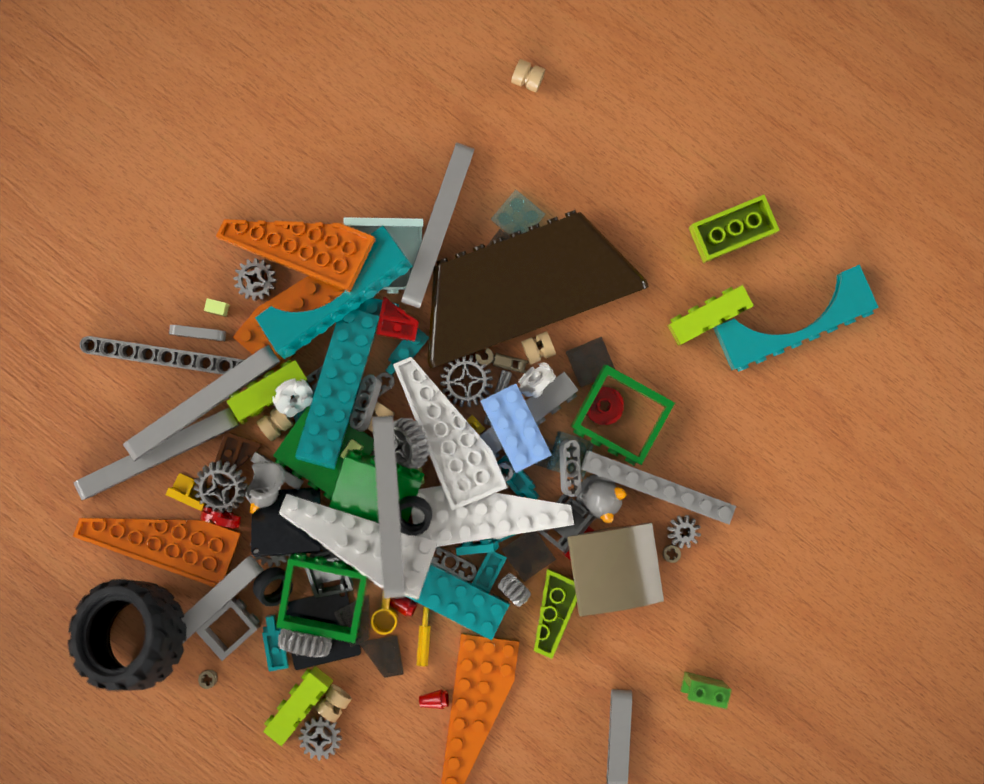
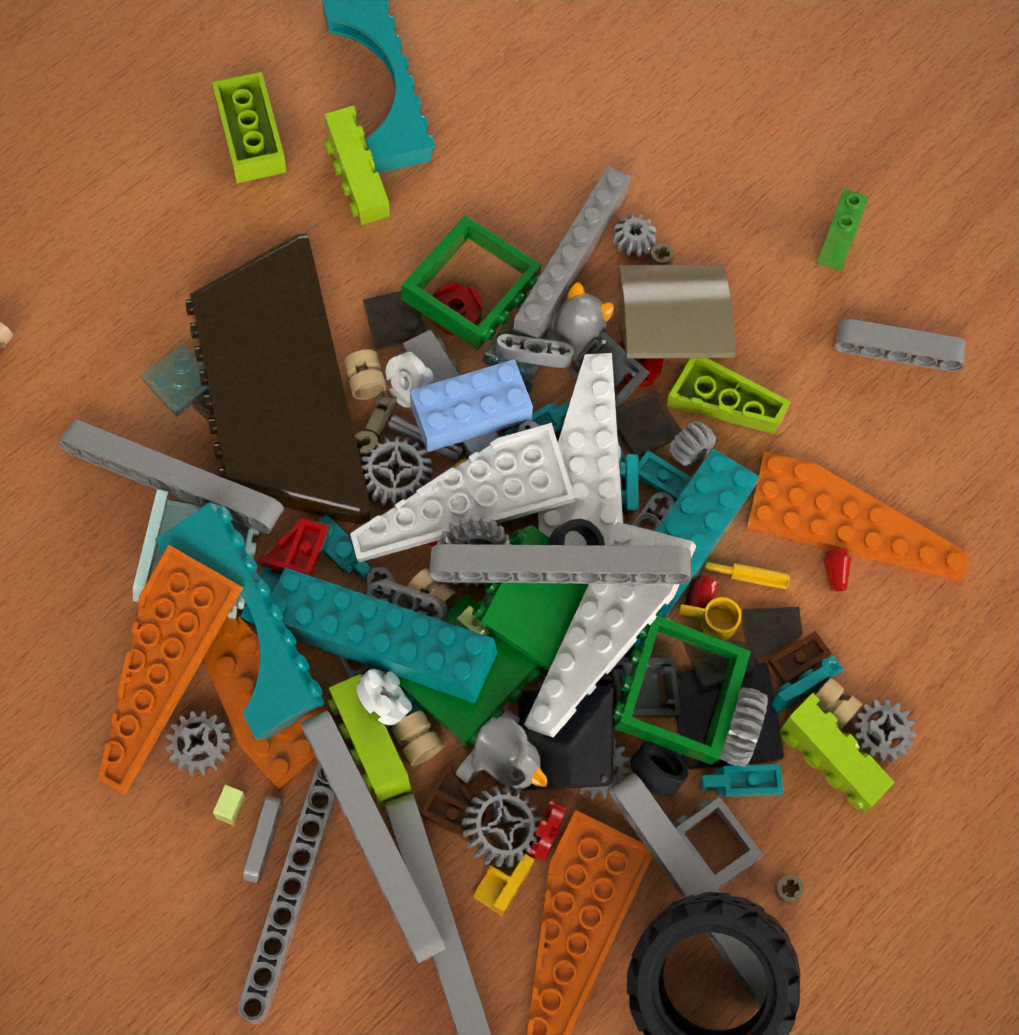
camera: 85 degrees left, 20 degrees down
(347, 684) = (807, 684): none -> teal hinge
(366, 677) = (799, 657): none -> reddish brown plate

